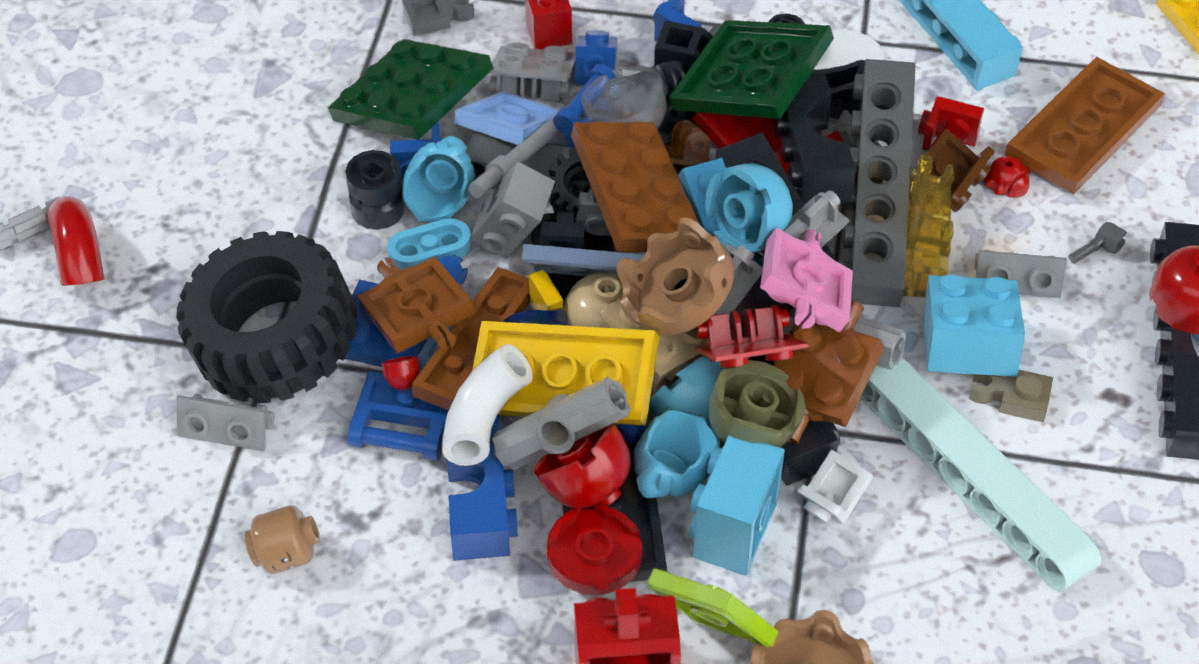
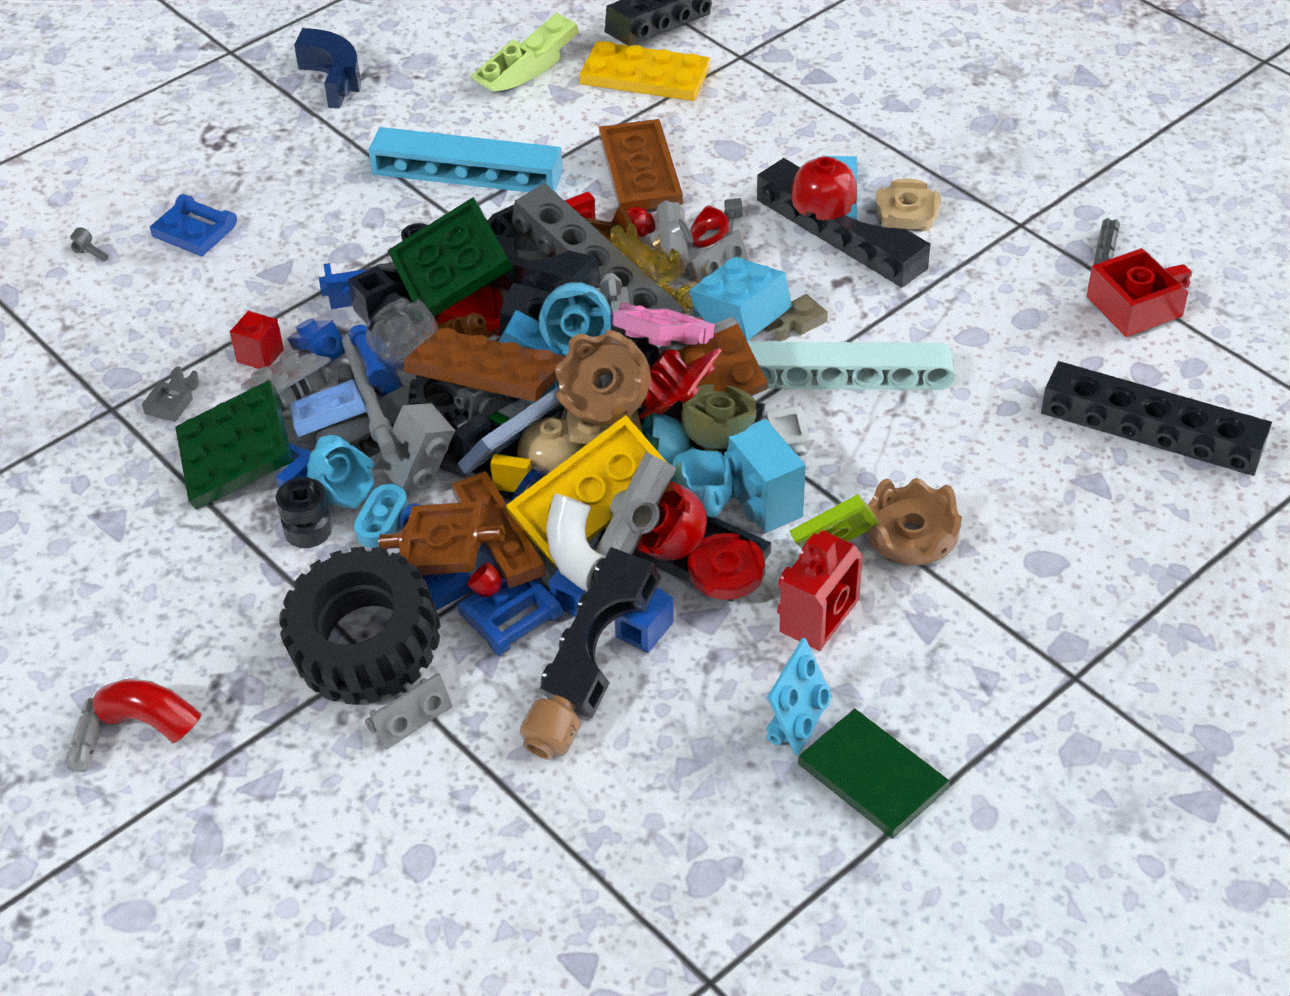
camera: 50 degrees left, 5 degrees down
(355, 516) = (619, 587): none -> black arch
(1002, 215) = (672, 232): none -> light grey piece
(1066, 227) = (709, 219): none -> red piece

